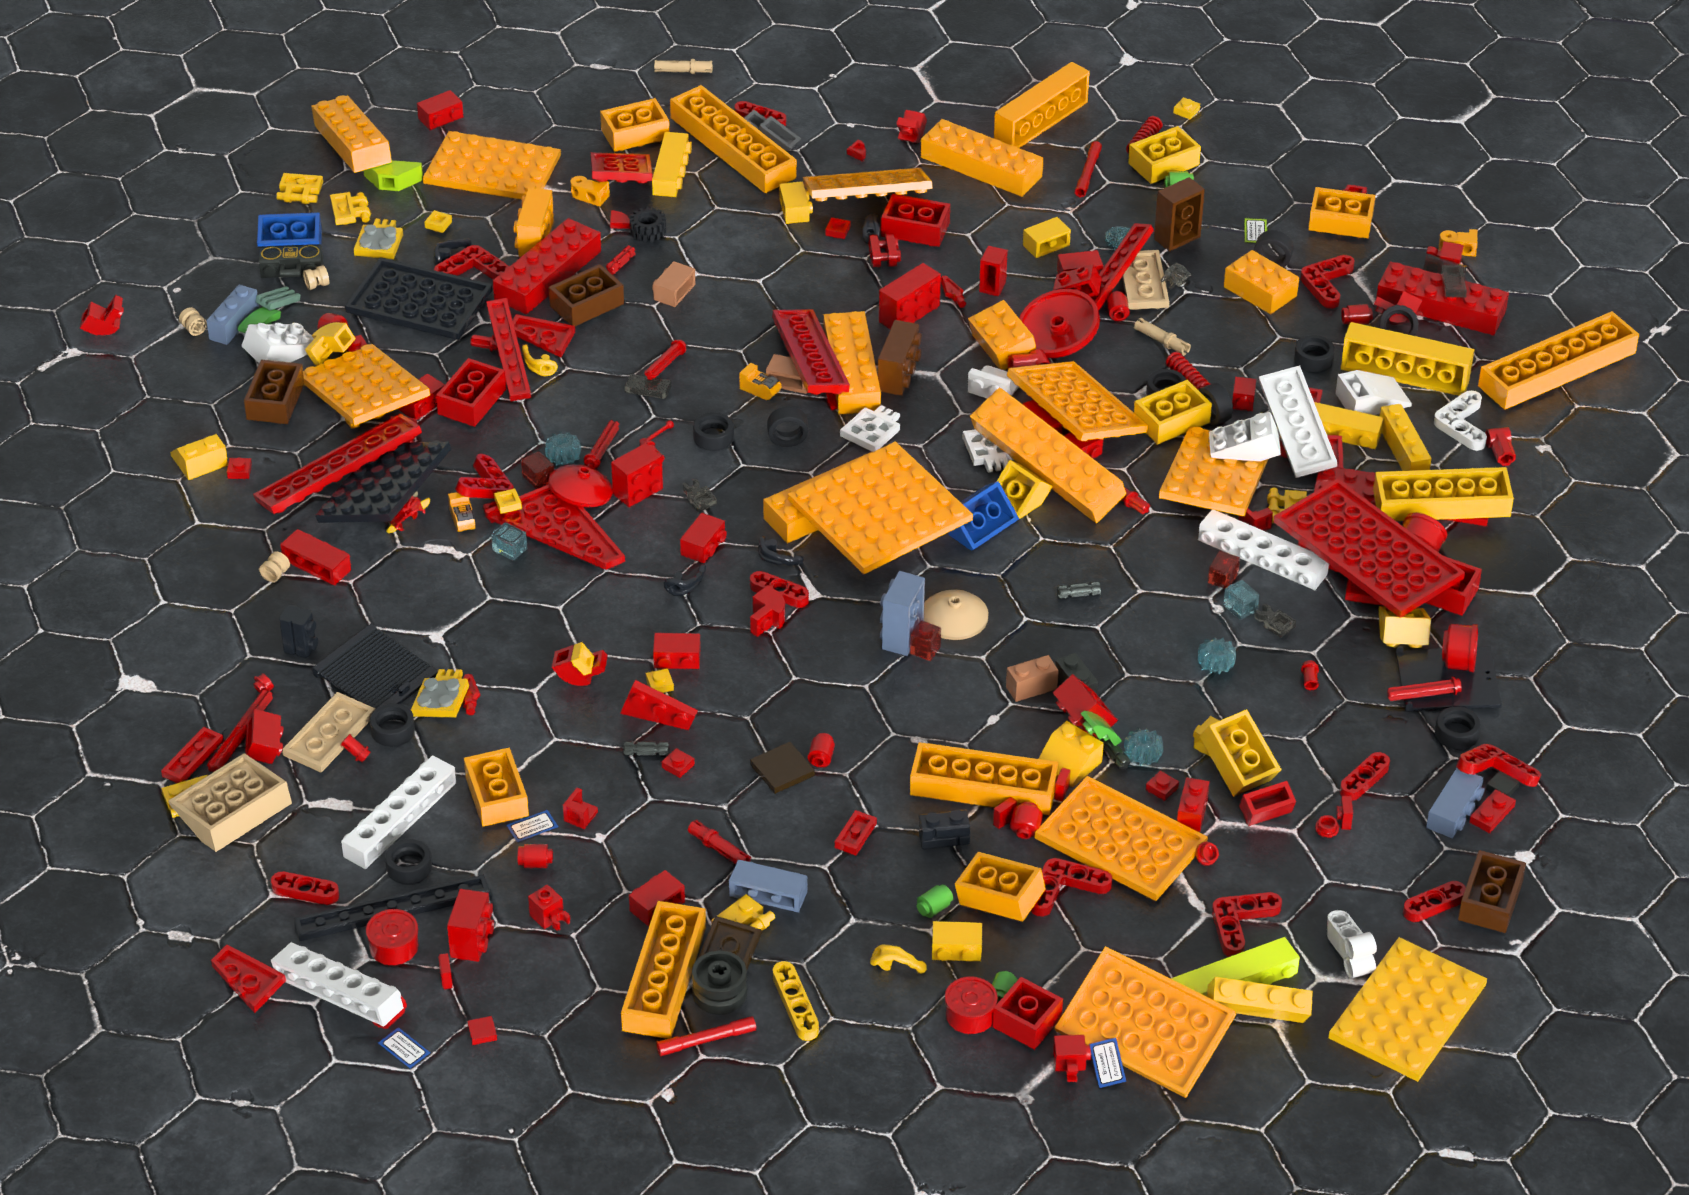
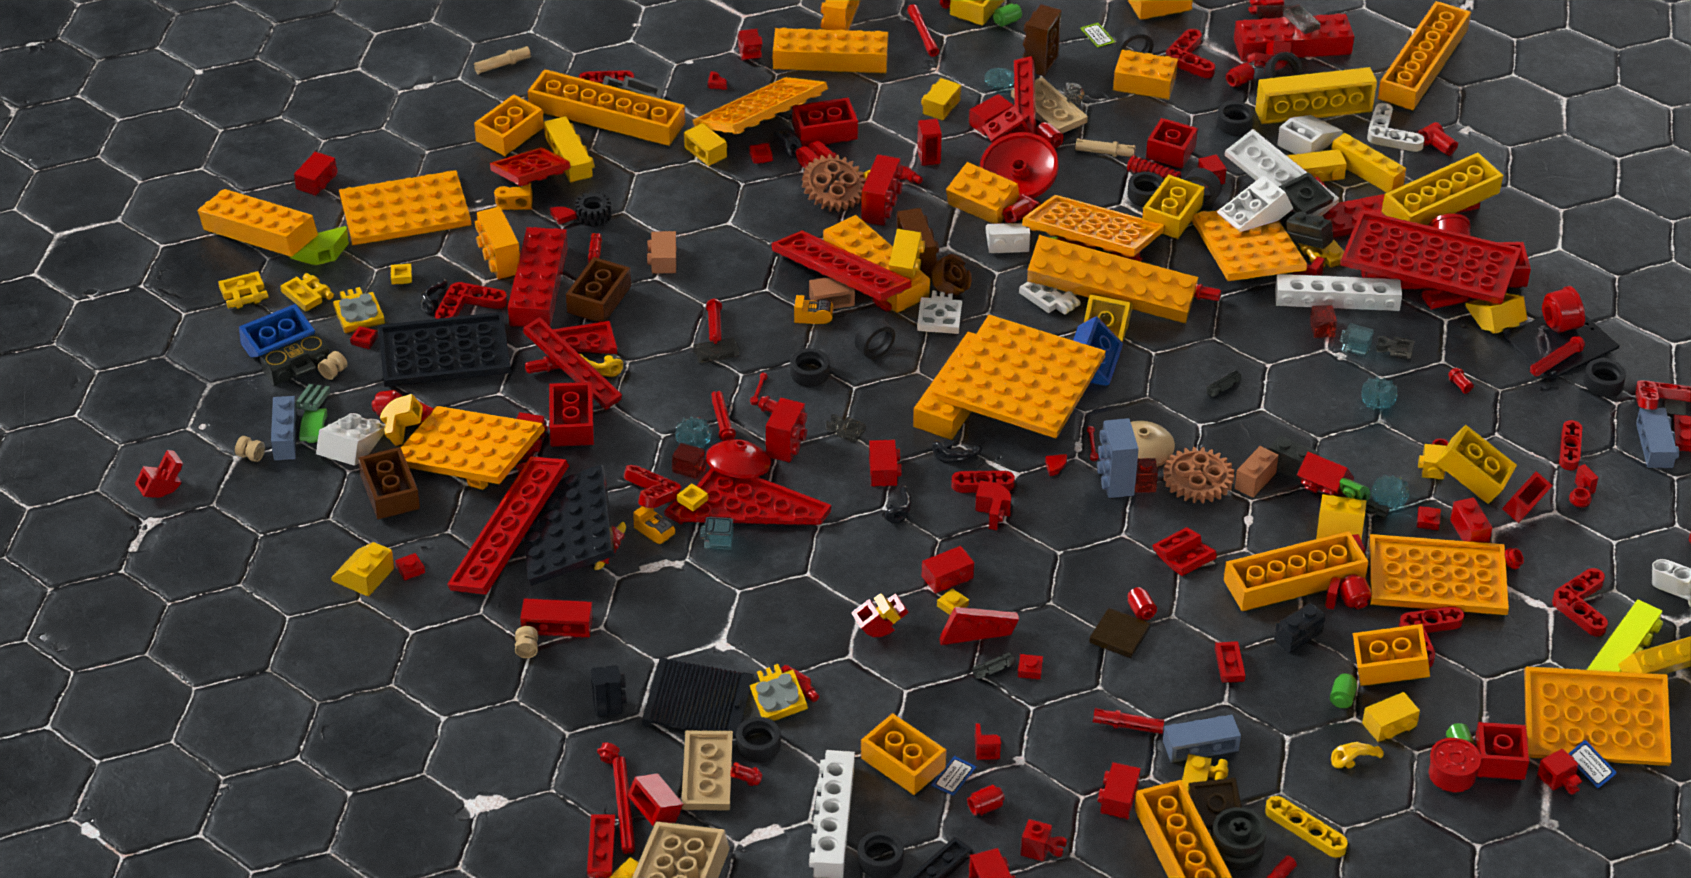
camera: 30 degrees left, 0 degrees up
(363, 264) = (364, 337): none -> red tile
(858, 599) = (1055, 463): none -> red tile
(865, 359) = (906, 253): none -> yellow brick
(874, 275) = (825, 172): none -> nougat gear
(905, 722) = (1184, 551): none -> red slope
(906, 397) = (950, 275): none -> reddish brown cylinder
(959, 660) = (1198, 475): none -> nougat gear
(1225, 353) = (1171, 143): none -> red brick
(1279, 481) = (1310, 230): none -> pearl dark grey brick
(1302, 445) = (1307, 194): none -> pearl dark grey plate

